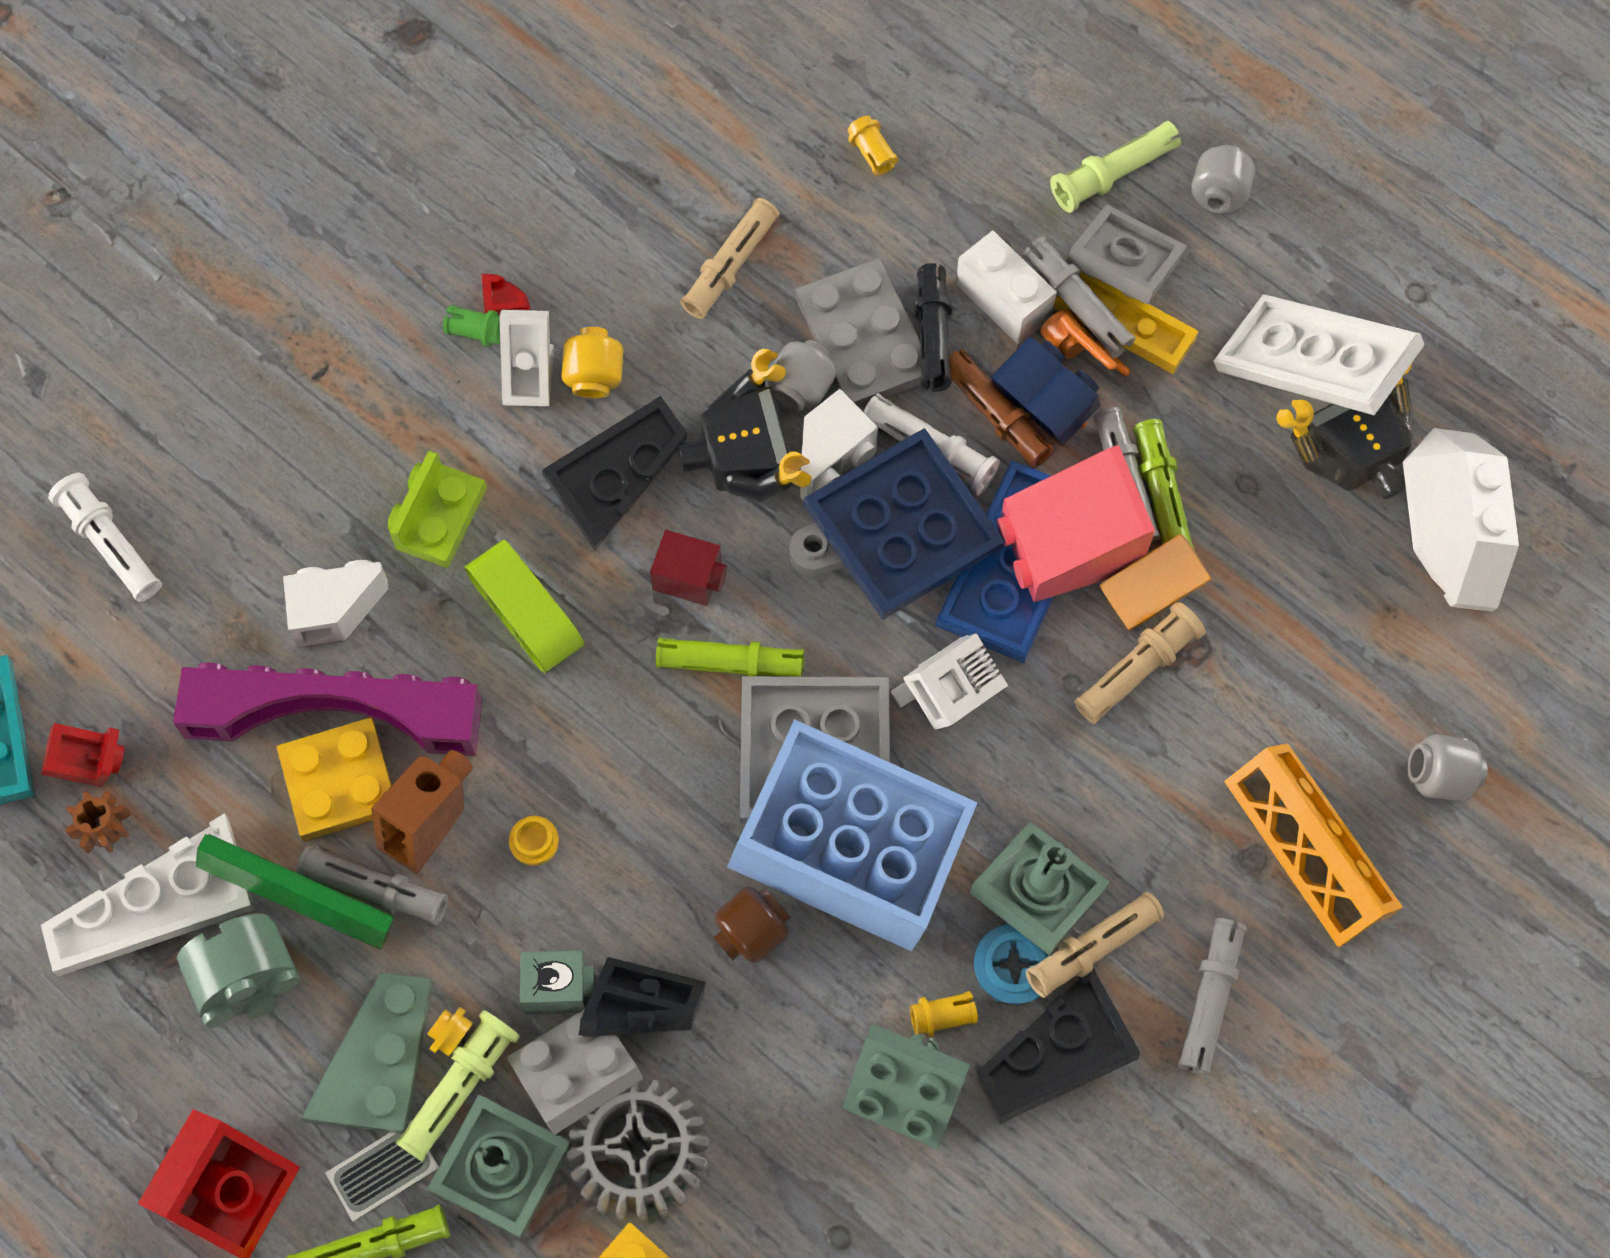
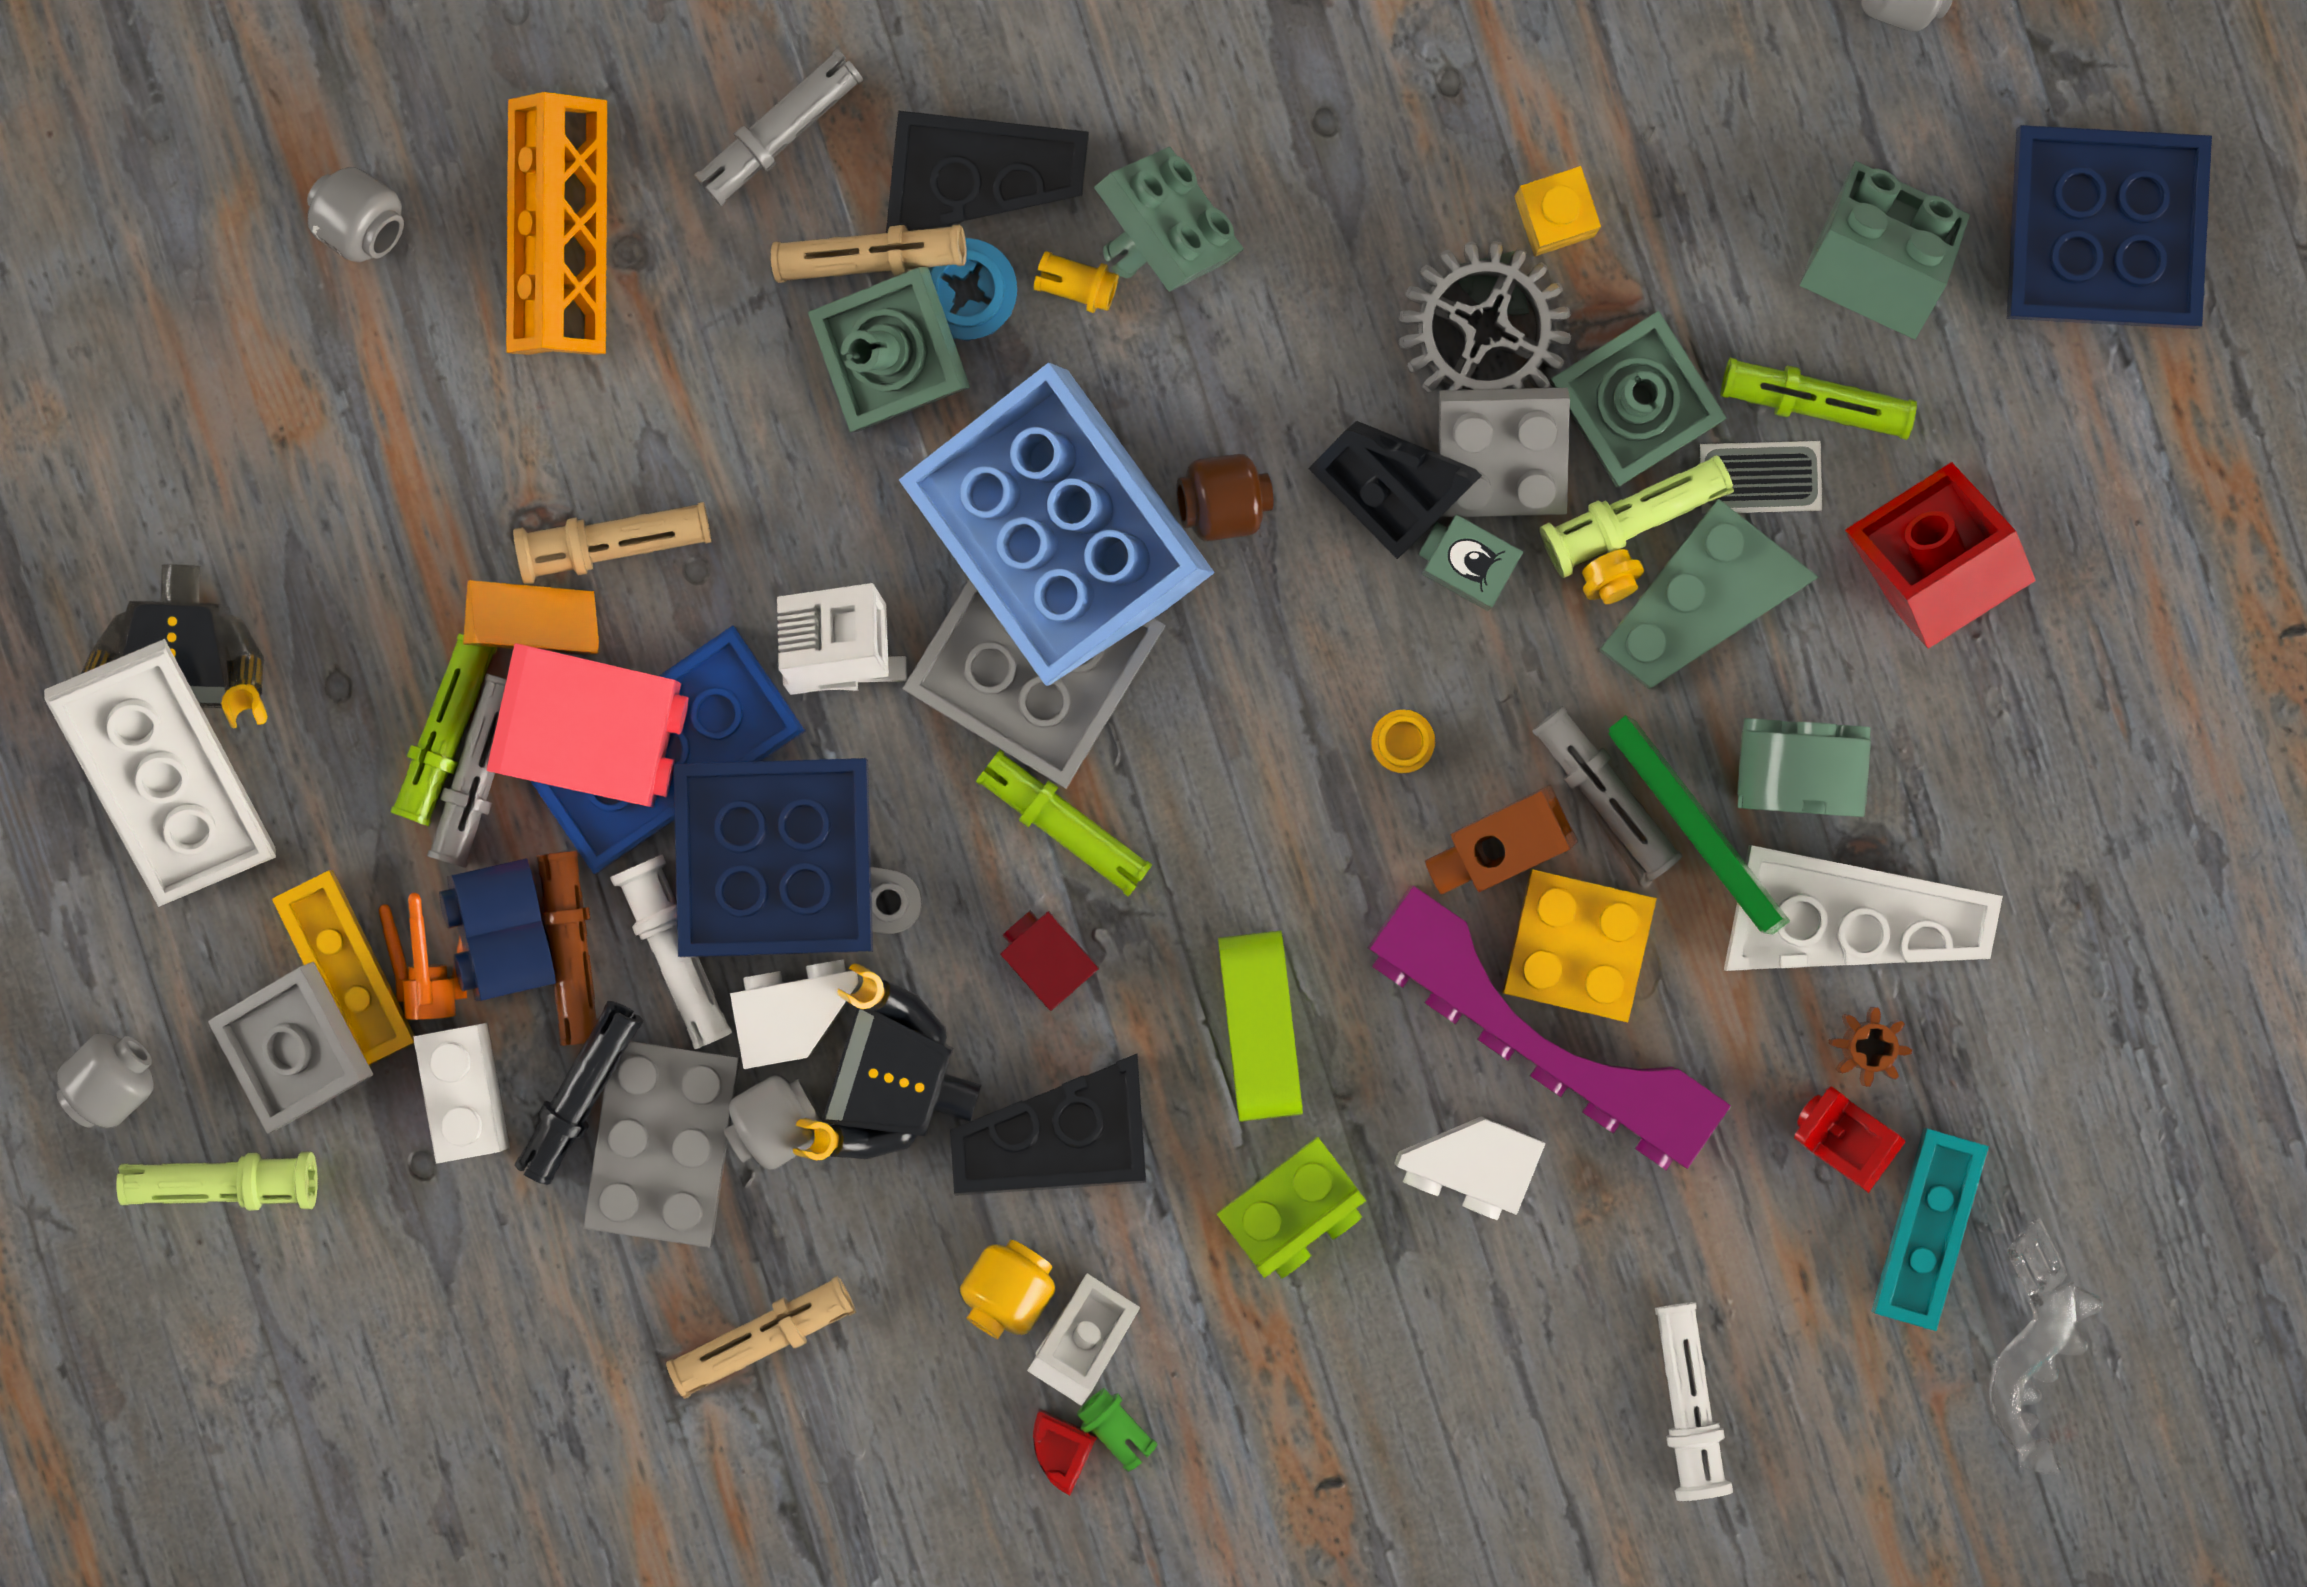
camera: 150 degrees left, 20 degrees up
(867, 137) = (495, 1389): yellow pin -> none
(1078, 296) = (388, 1020): light grey pin -> none
(1462, 516) = (127, 493): white wedge -> none

